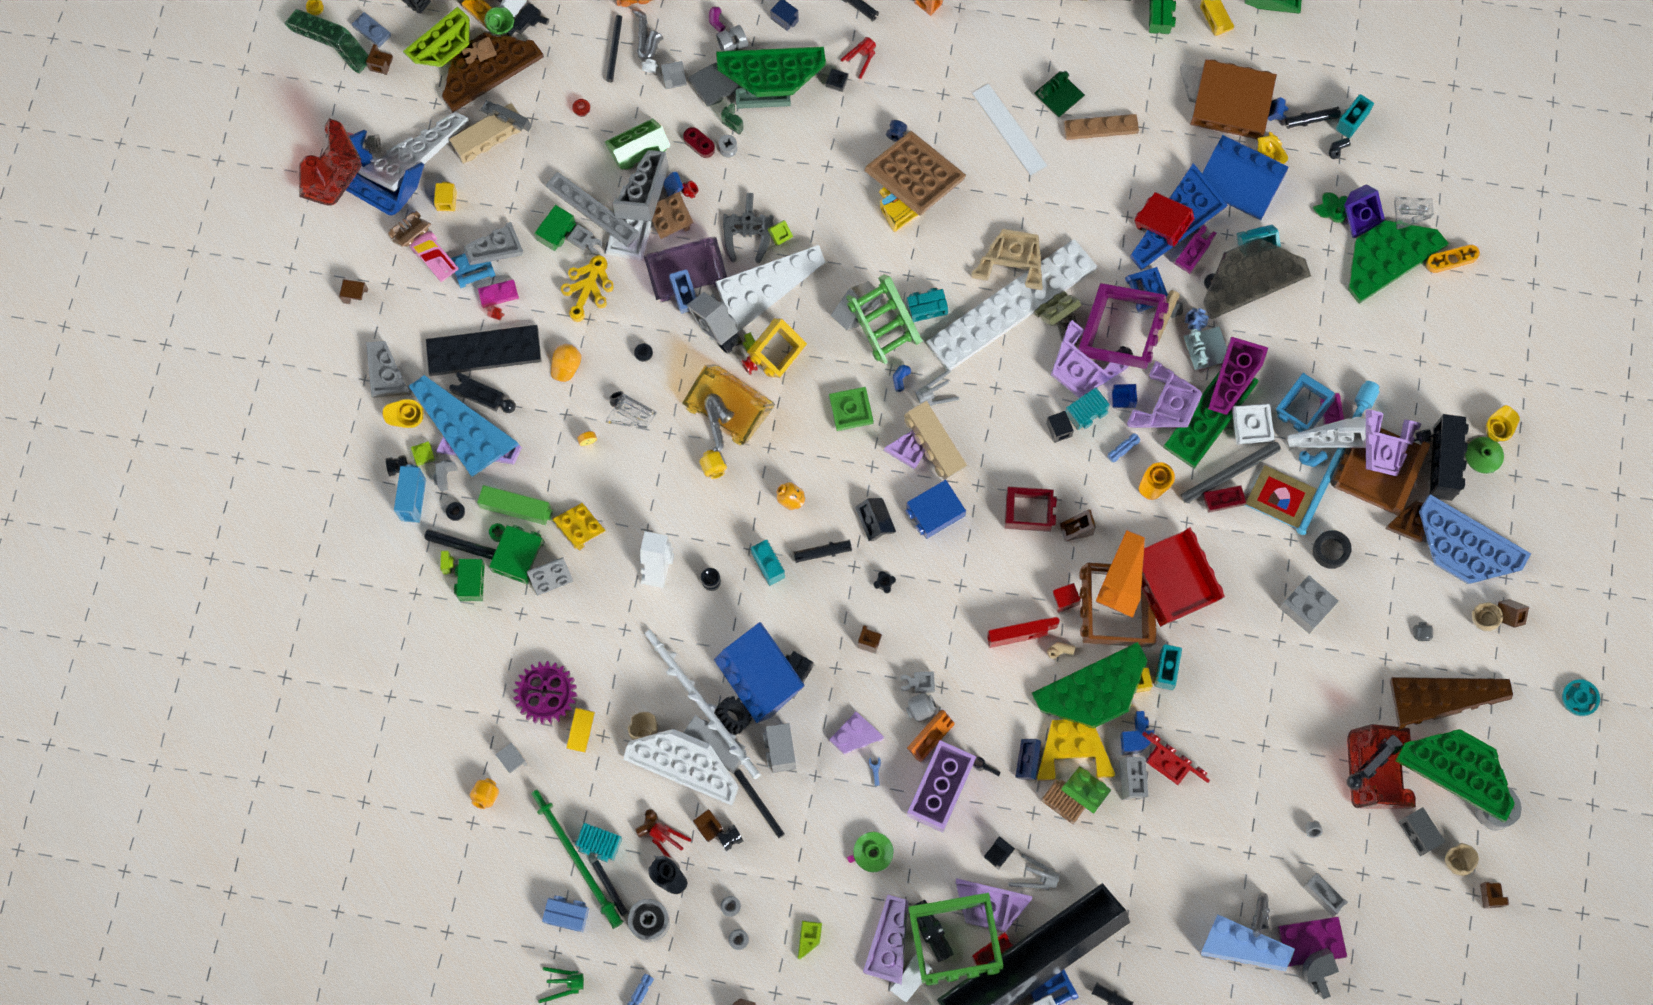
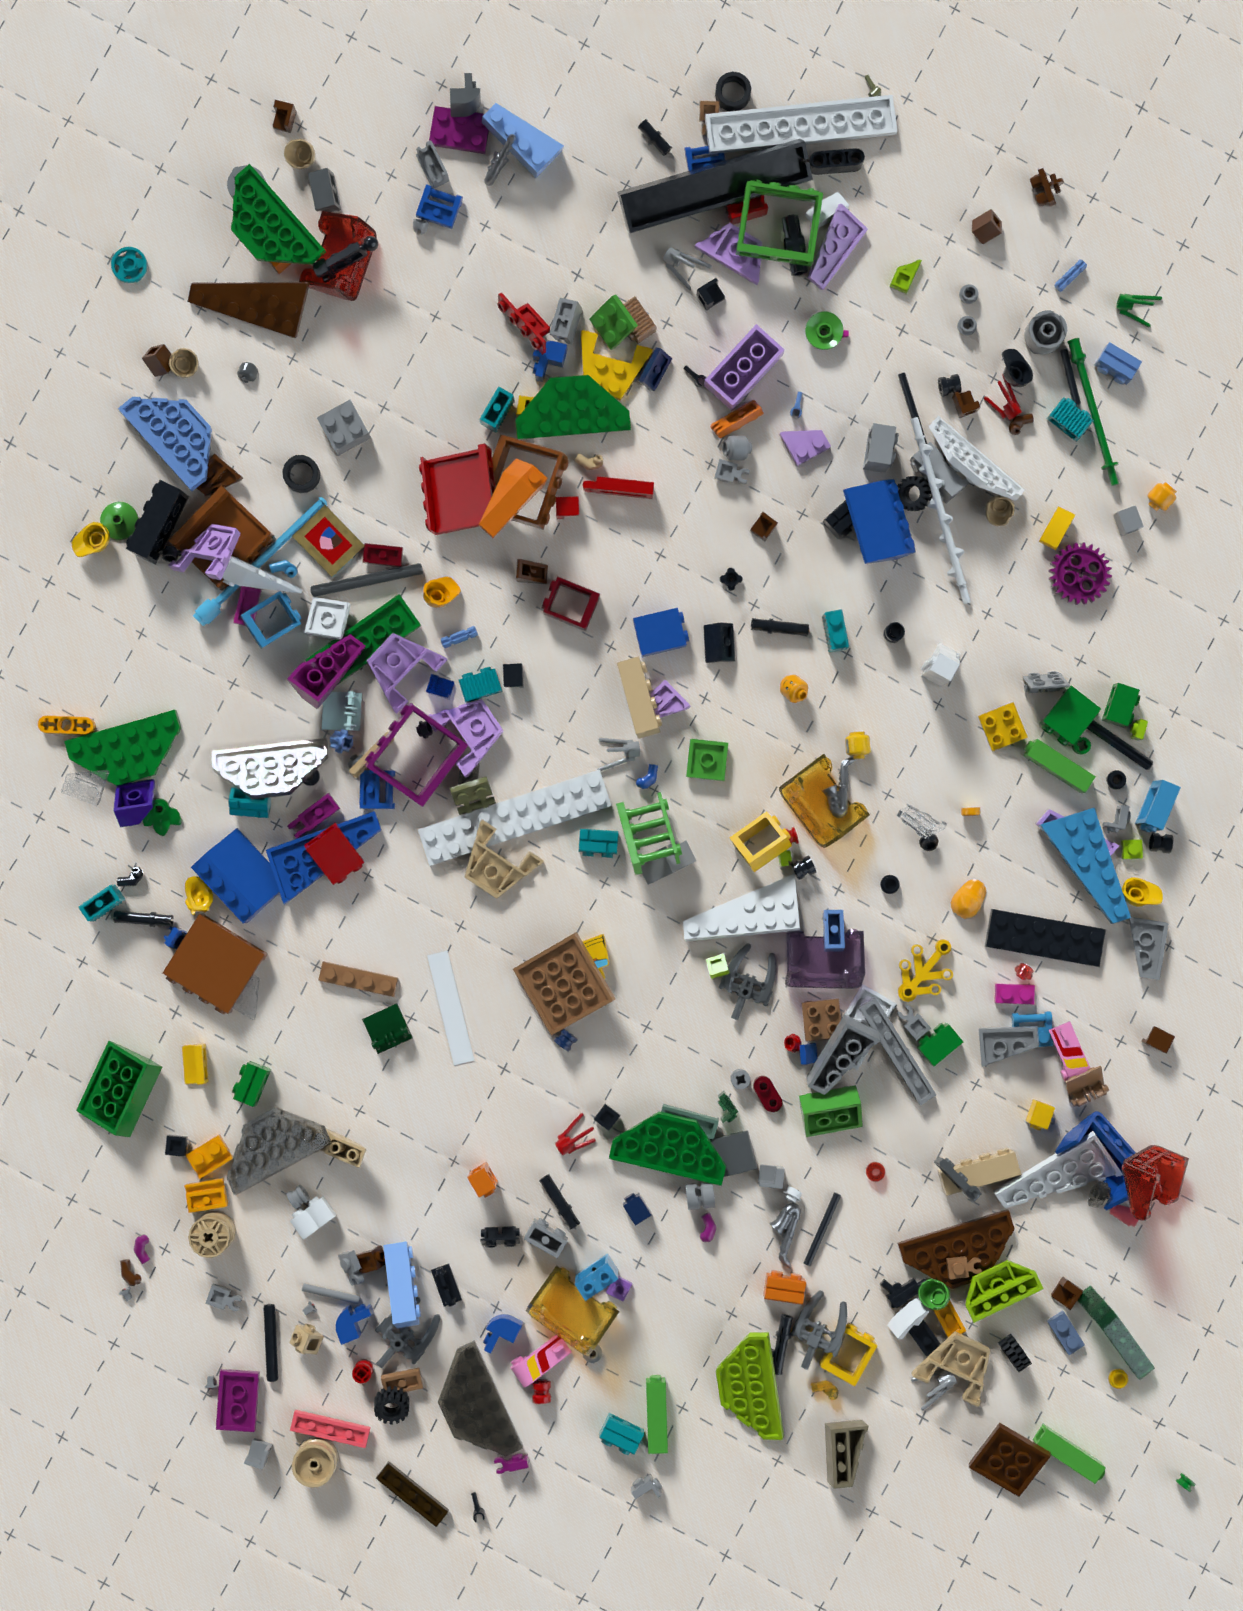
camera: 165 degrees left, 15 degrees up
(482, 394) = (1059, 890): black plate -> none
(713, 317) = (814, 890): light grey brick -> none
(1302, 847) = (438, 212): none -> blue plate

